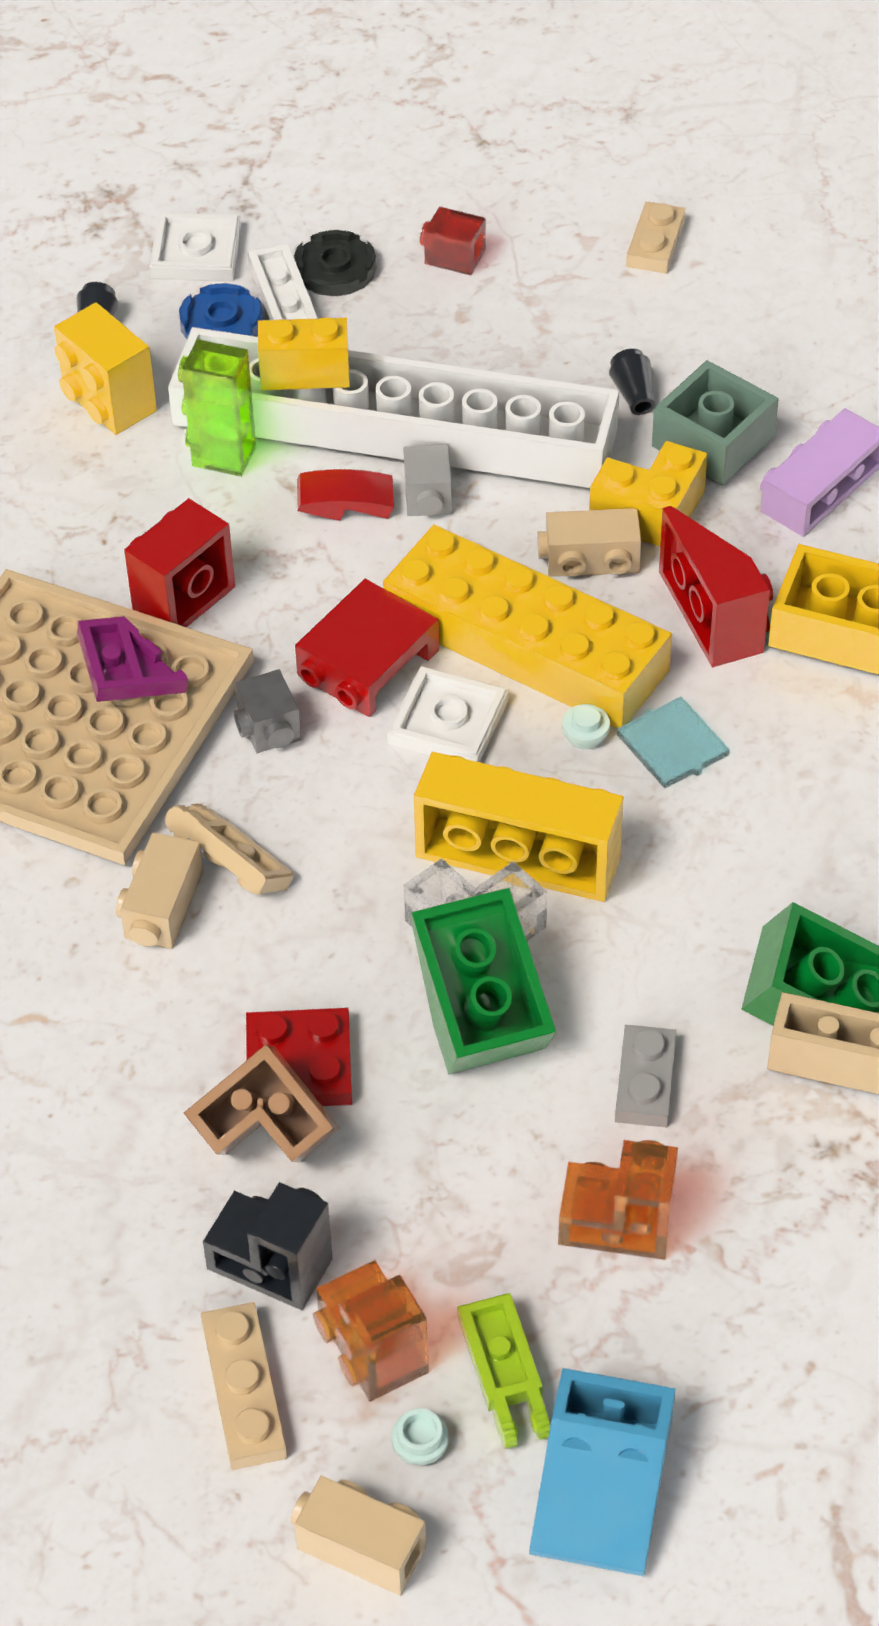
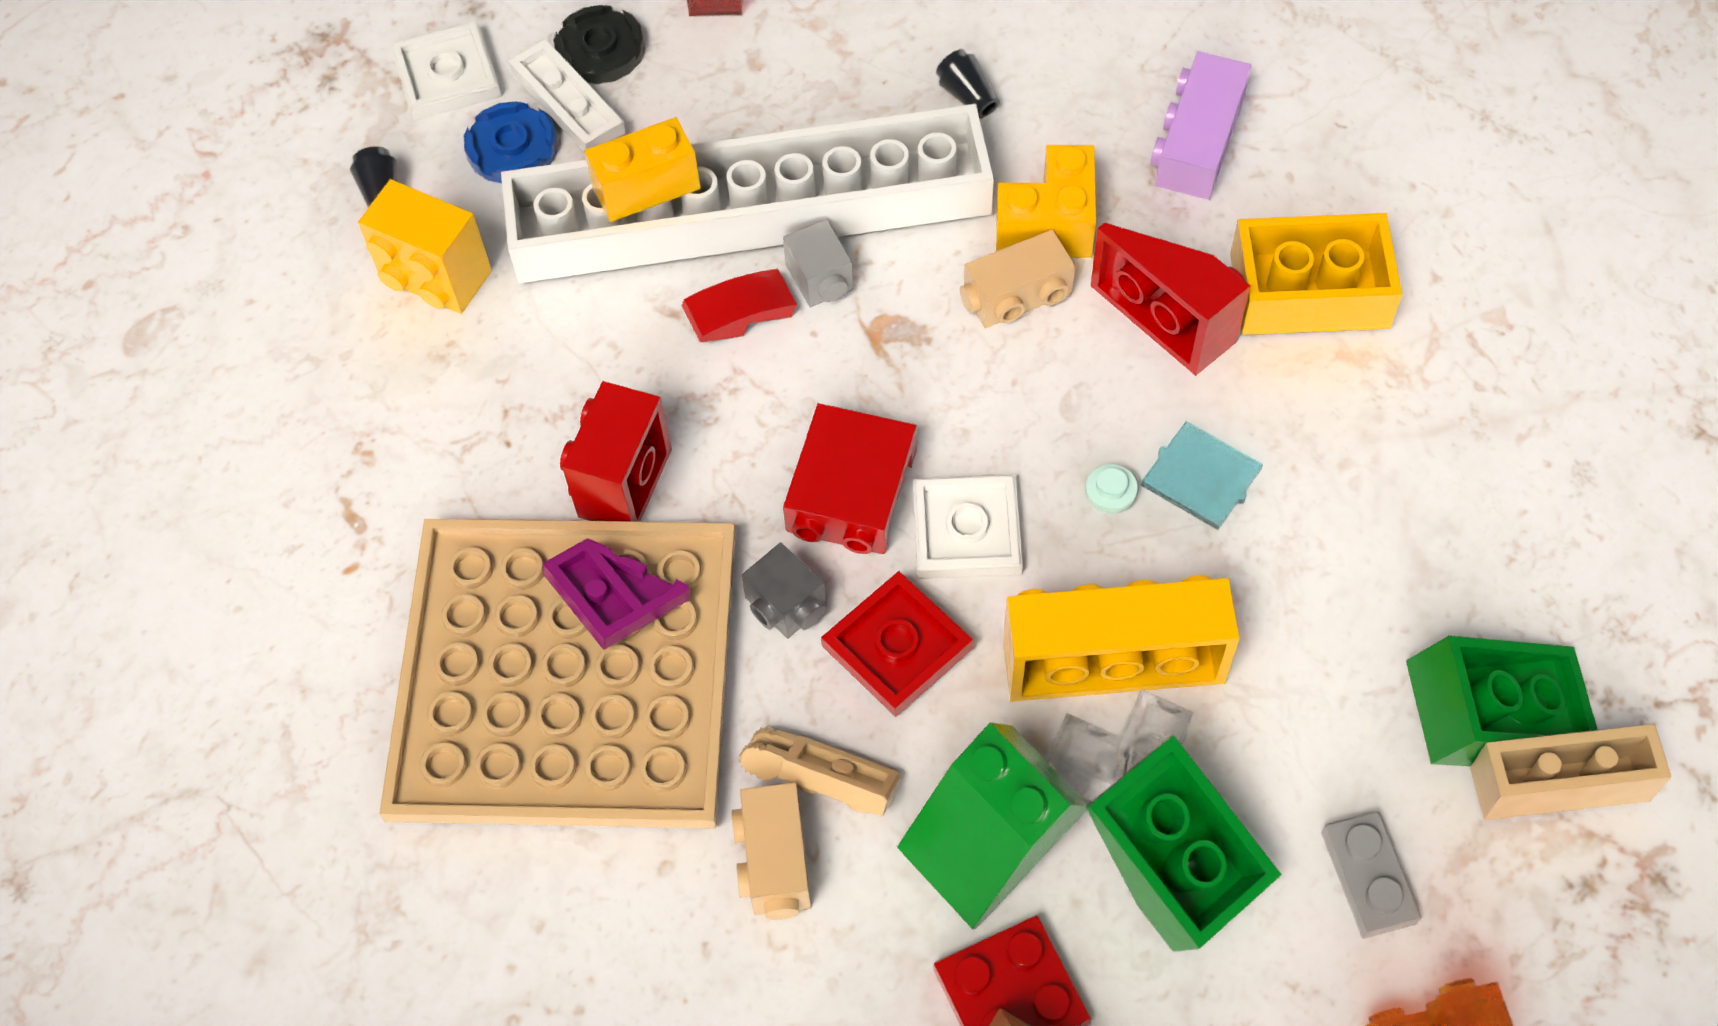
camera: 20 degrees left, 10 degrees up
(218, 407) = (573, 256): clear neon green brick -> none
(339, 916) = (990, 822): none -> green slope
(341, 779) = (897, 643): none -> red plate
(533, 625) = (1006, 395): yellow brick -> none
(717, 416) = (1076, 102): sand green brick -> none

